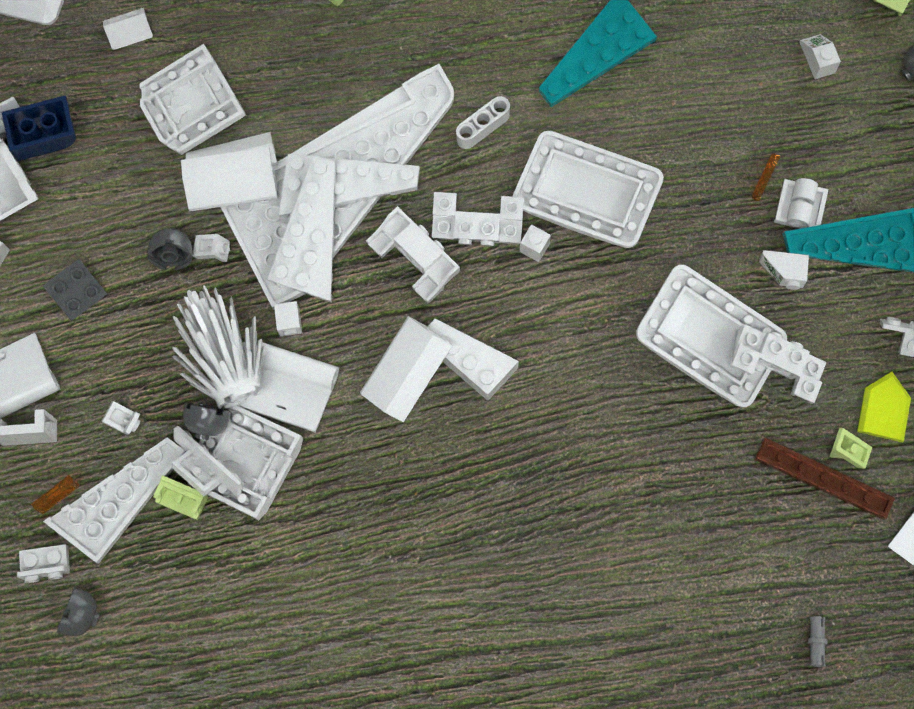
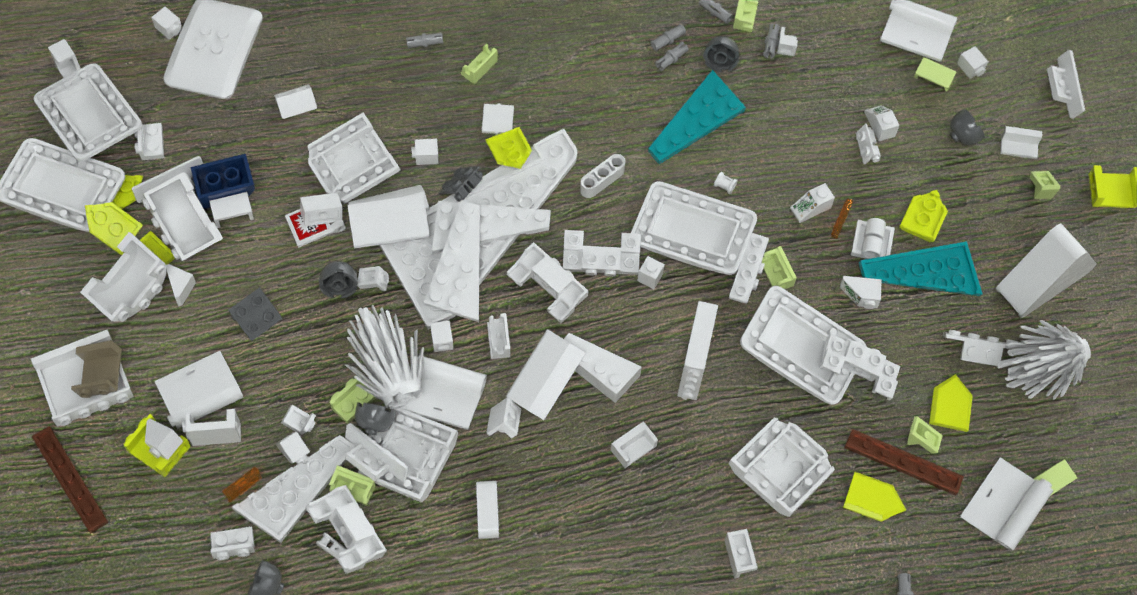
camera: 10 degrees left, 10 degrees down
(50, 160) = (231, 207): none -> white panel
(113, 453) = (293, 448): none -> white slope
(143, 179) = (308, 234): none -> flag
(152, 163) = (320, 209): none -> white panel
(161, 573) = (335, 548): none -> white bar
(177, 393) = (345, 401): none -> yellowish green bracket
(177, 548) = (352, 527): none -> white bracket
(276, 91) = (425, 151): none -> white brick
(311, 133) = (462, 182): none -> dark grey hinge
(334, 529) = (487, 509): none -> white beam
(354, 320) = (498, 337): none -> white hinge
(357, 420) = (504, 418): none -> white panel
(363, 50) = (497, 118): none -> white piece
(375, 88) = (510, 148): none -> neon yellow tile
(507, 453) = (634, 444): none -> white panel
(584, 344) = (697, 350): none -> white window
(626, 588) = (740, 552): none -> white panel
(628, 131) = (725, 183): none -> white bush
(651, 239) = (749, 268): none -> white bracket
(680, 482) = (782, 466): none -> white wedge
(686, 240) = (778, 268): none -> yellowish green hinge
(732, 158) = (813, 203): none -> white slope
(785, 522) = (872, 498): none -> neon yellow tile
(799, 76) = (866, 139): none -> white hinge
(865, 174) = (924, 216): none -> neon yellow tile

